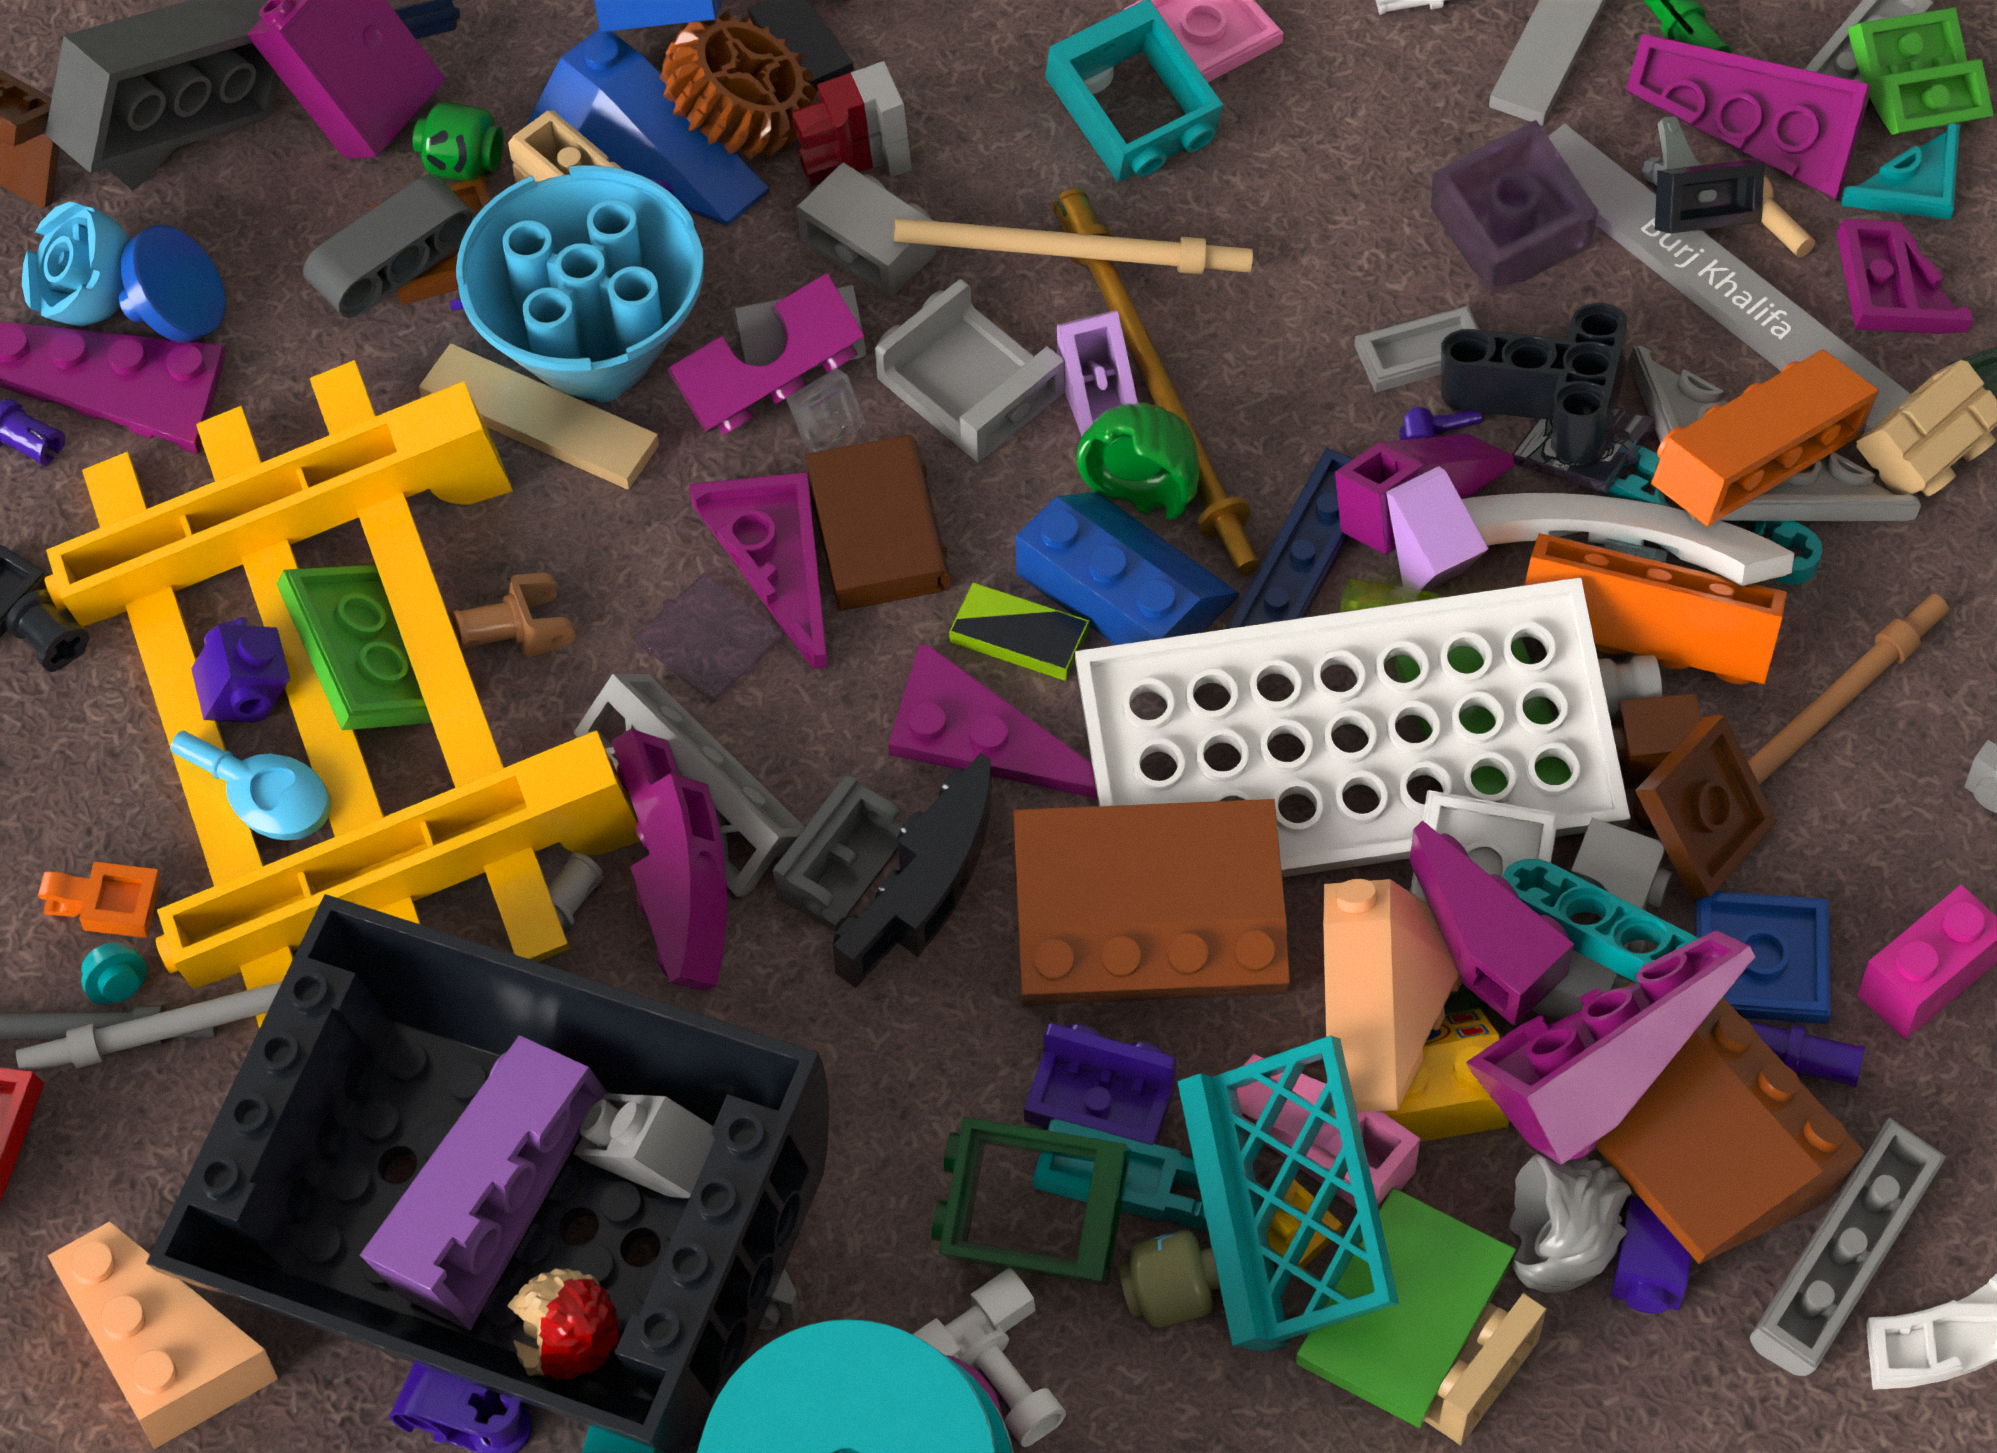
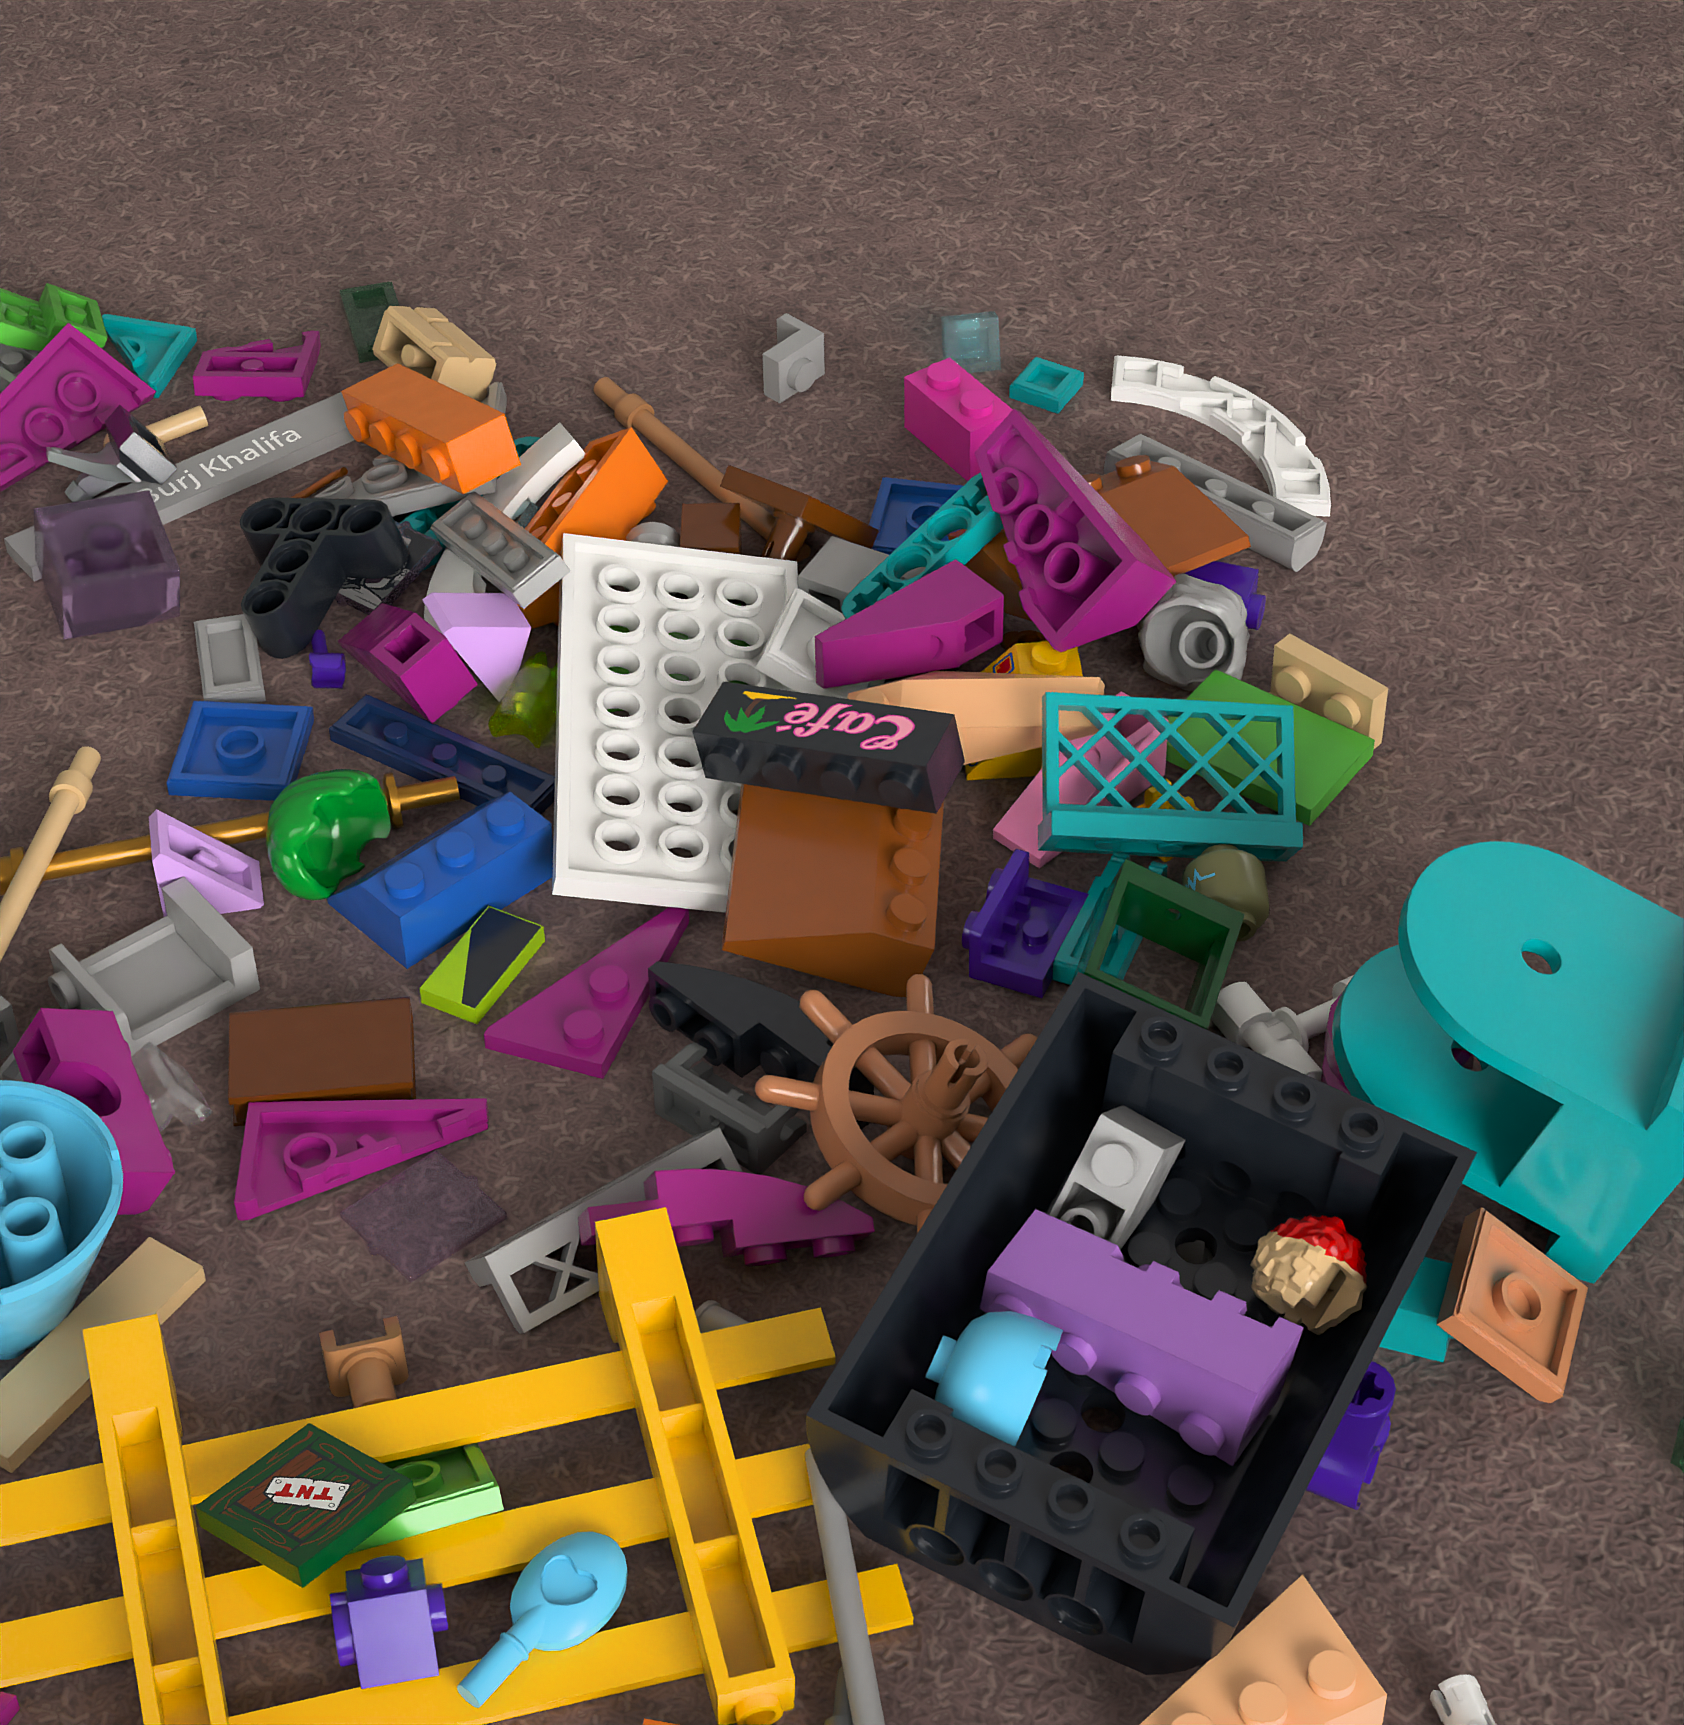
camera: 85 degrees left, 15 degrees down
(319, 580) = (306, 1504): none -> dark green tile
(406, 1055) = (994, 1371): none -> medium azure cylinder
(800, 1004) = (922, 1117): none -> nougat piece
(1253, 854) = (829, 746): none -> black brick
(1292, 384) = (240, 750): none -> blue tile
(1555, 527) = (499, 549): none -> light grey tile
(1695, 359) = (321, 483): none -> dark orange piece

